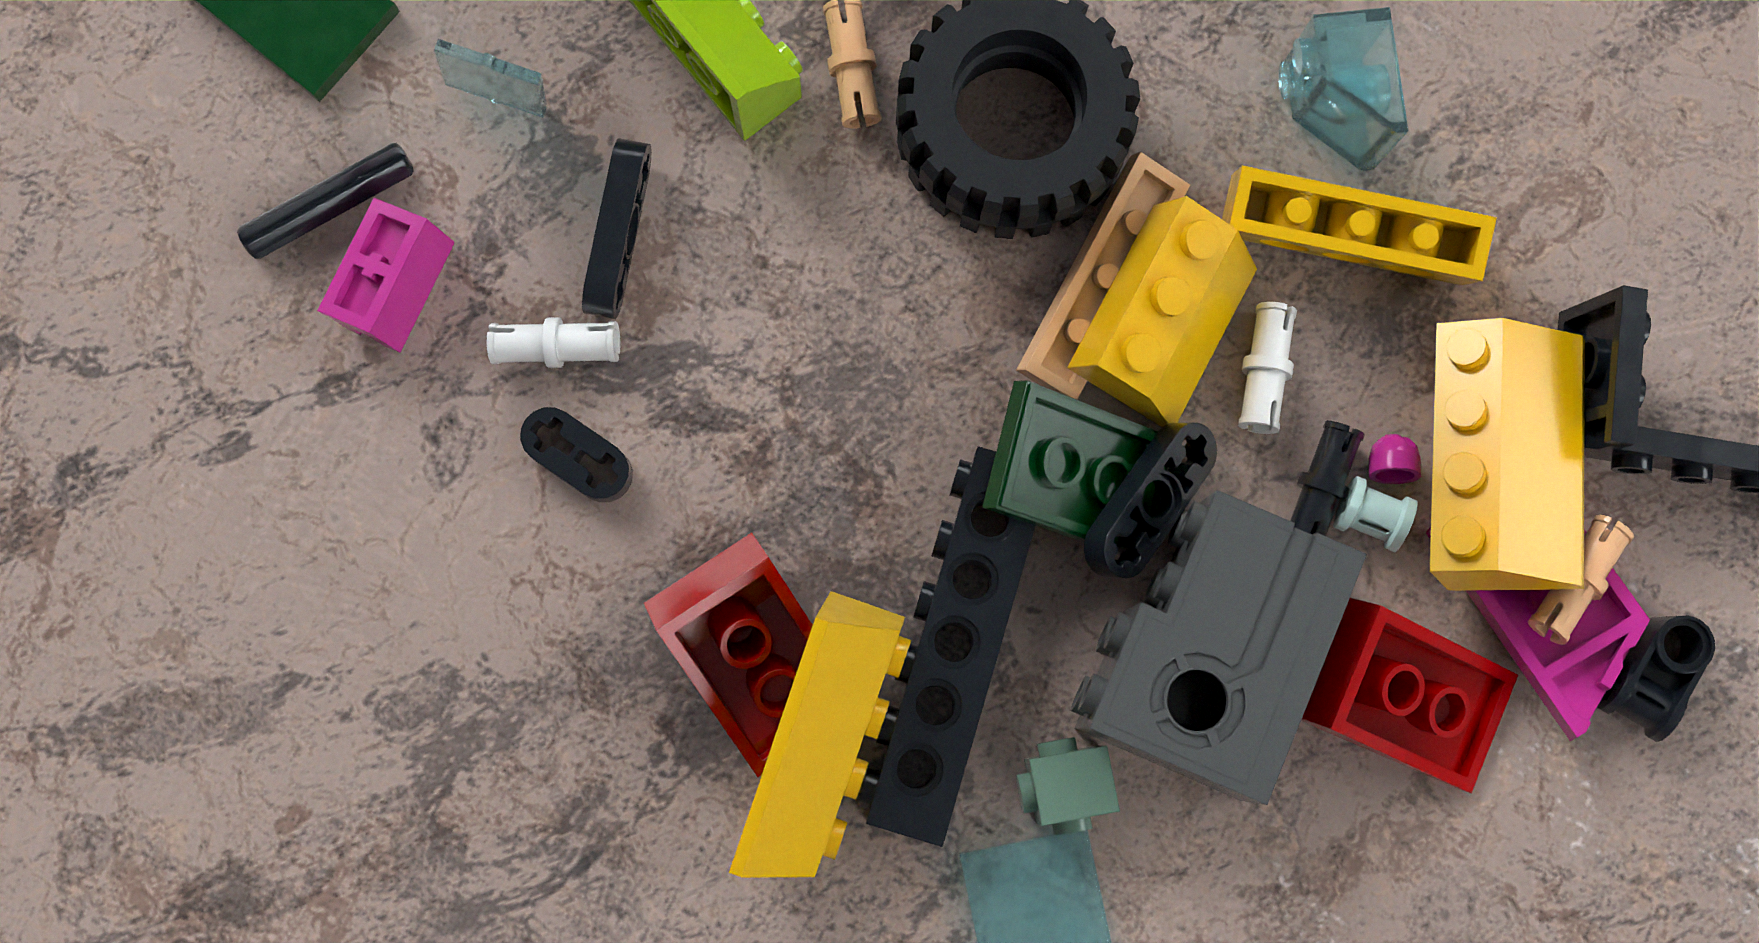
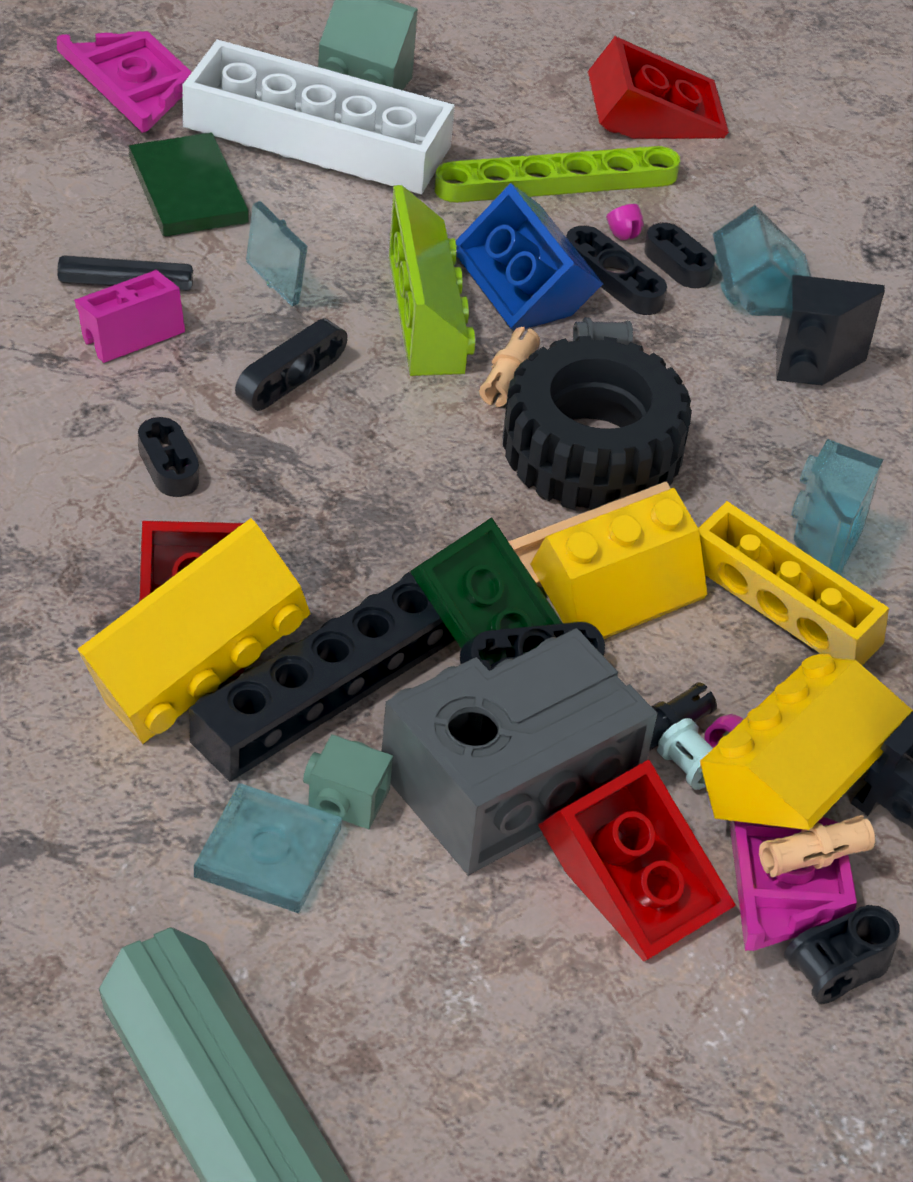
camera: 30 degrees right, 35 degrees down
(553, 342) = (203, 396): white pin -> none
(1267, 367) = (673, 641): white pin -> none

